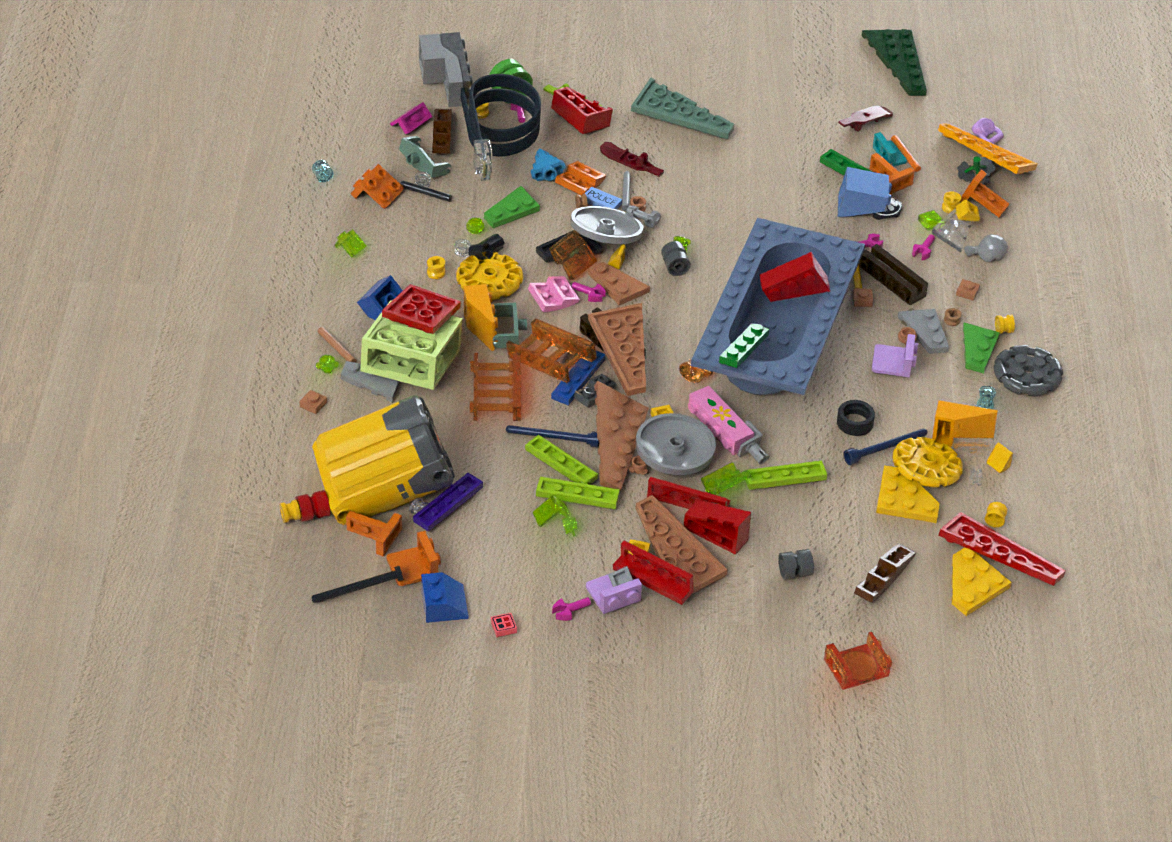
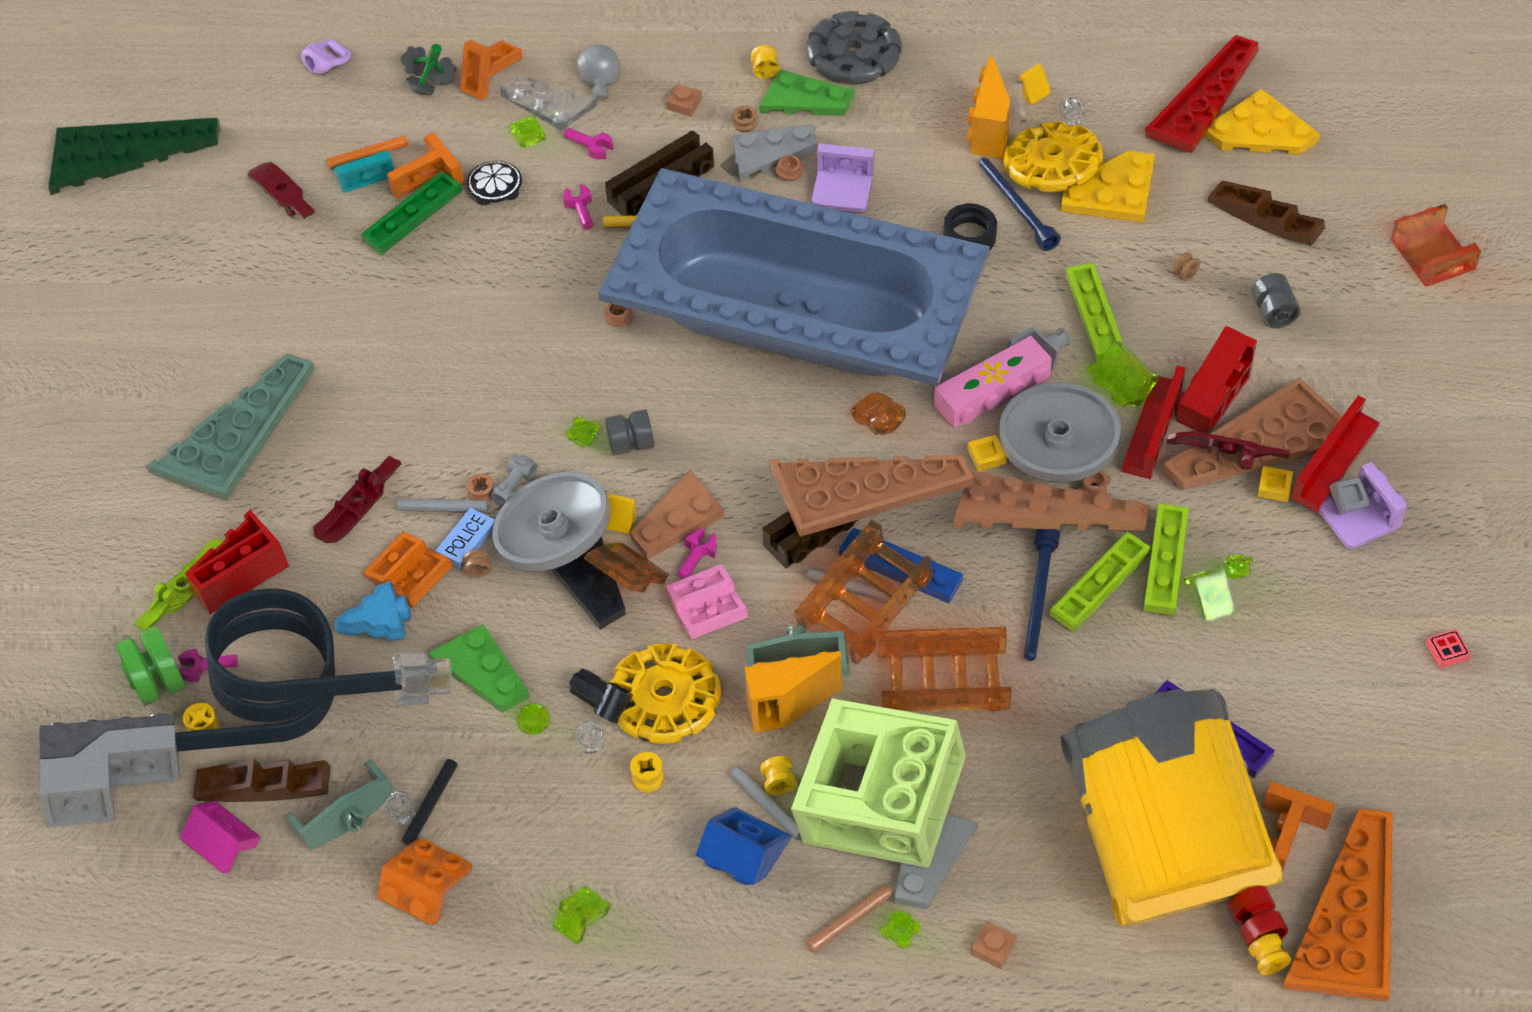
camera: 85 degrees left, 10 degrees up
(308, 551) = (1351, 927): none -> orange wing
(322, 171) = (373, 972): clear light blue wheel -> none
(396, 574) = (1390, 785): black bar -> none
(415, 560) = (1350, 765): orange bracket -> none
(421, 309) = (829, 751): red plate -> none
(443, 598) = (1420, 728): blue slope -> none
(566, 609) = (1394, 579): dark pink bar -> none
(588, 394) = (930, 540): dark grey slope -> none
(657, 527) = (1227, 445): none -> dark red piece
(744, 345) = (907, 310): green plate -> none
(795, 279) = (765, 243): red wedge -> none
(828, 523) = (1186, 266): none -> medium nougat bush
(863, 193) = (485, 196): medium blue slope -> none
(951, 200) = (493, 103): yellow wheel -> none
(967, 211) = (526, 83): yellow slope -> none
(987, 394) = (919, 90): clear light blue bush -> none
(996, 514) = (1143, 94): yellow wheel -> none
(999, 155) = (386, 46): light orange wing -> none

